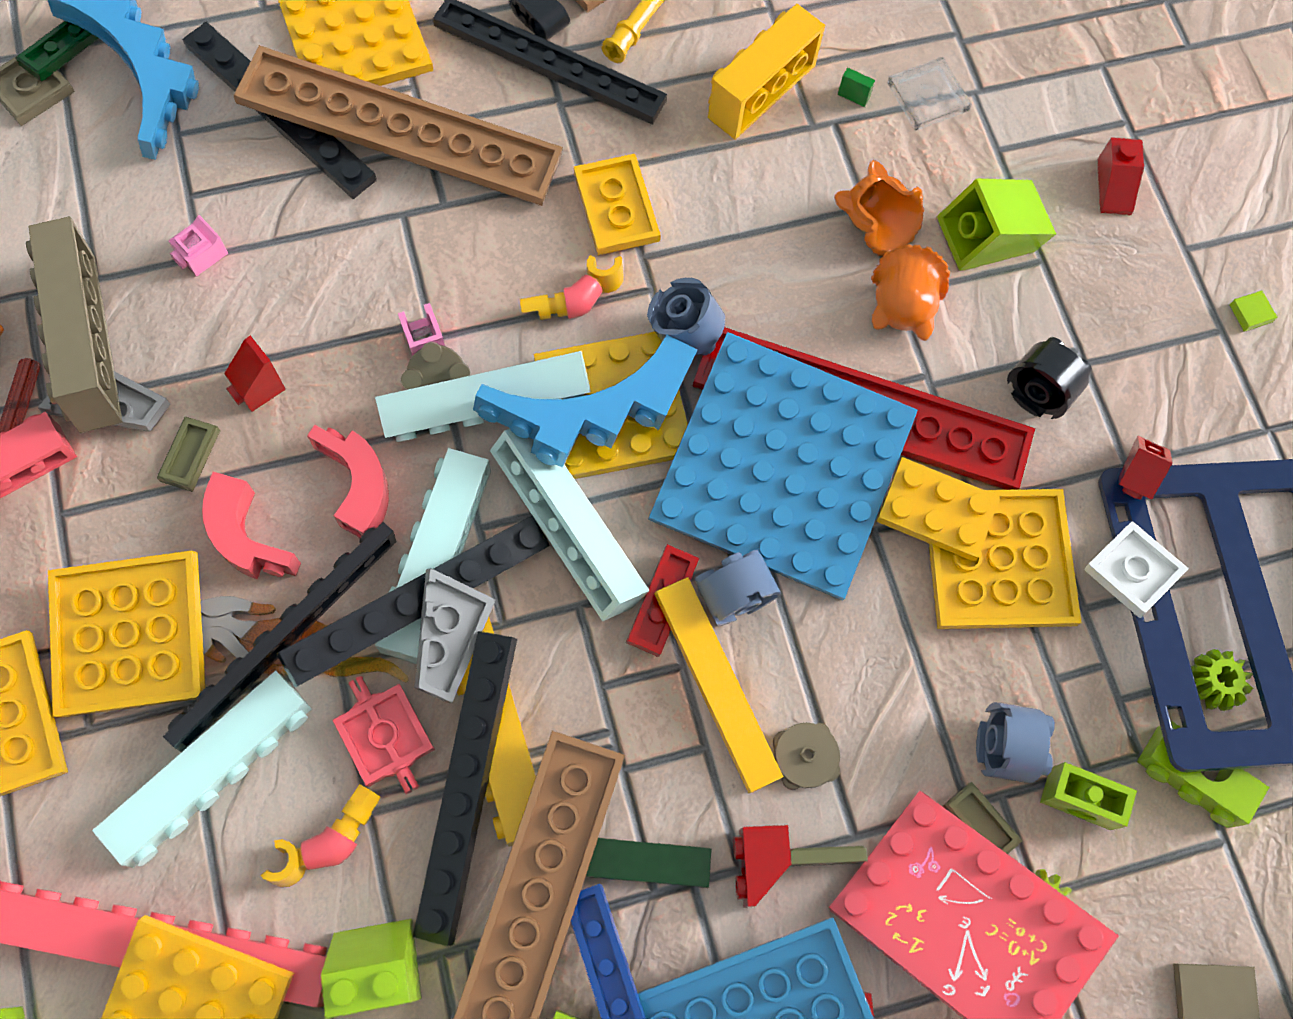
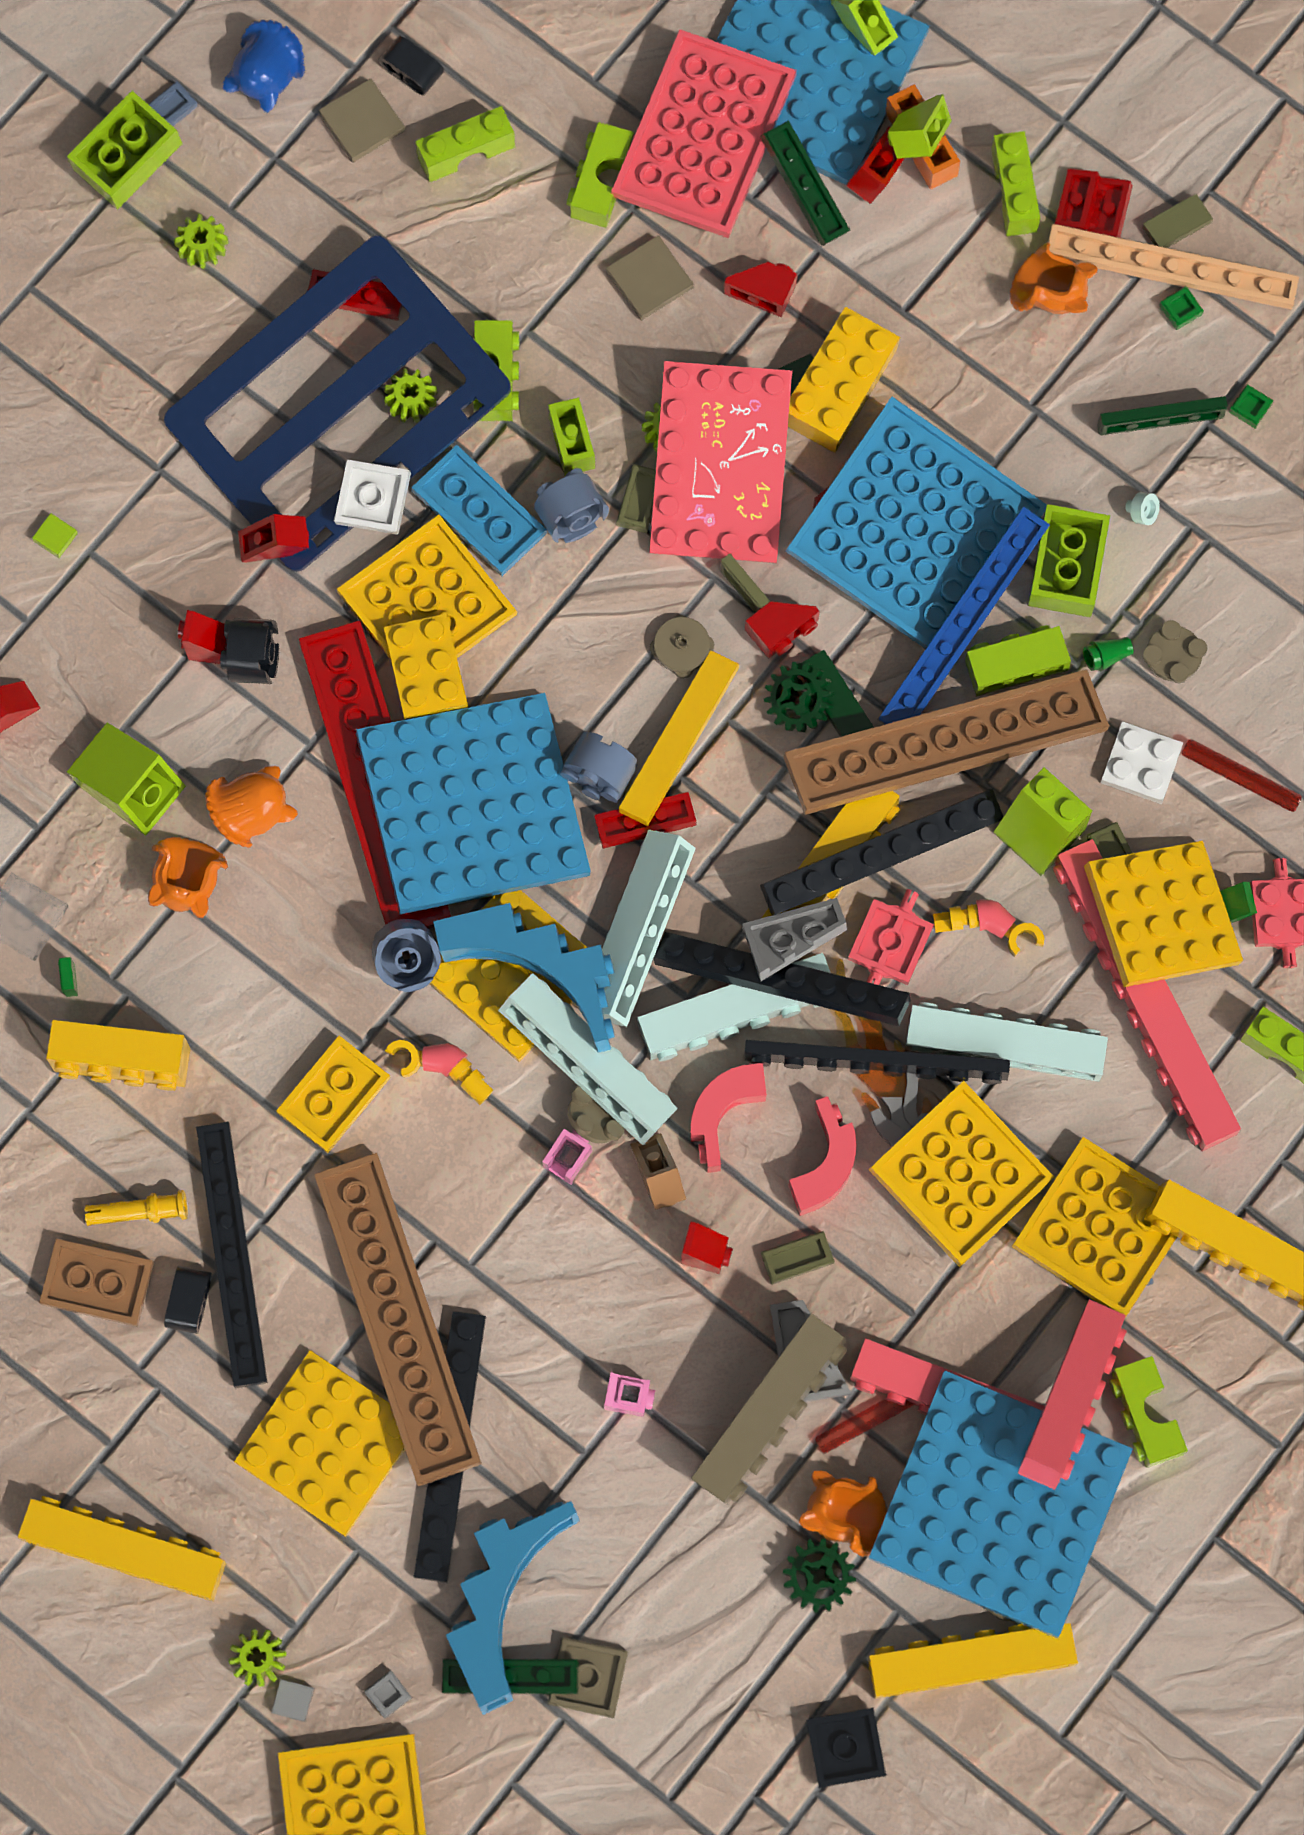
camera: 120 degrees left, 5 degrees up
(347, 390) = (658, 1172): none -> medium nougat slope
(695, 828) = (786, 701): none -> dark green gear
(1063, 663) = (479, 510): none -> dark azure plate
(1094, 339) = (202, 637): none -> red slope

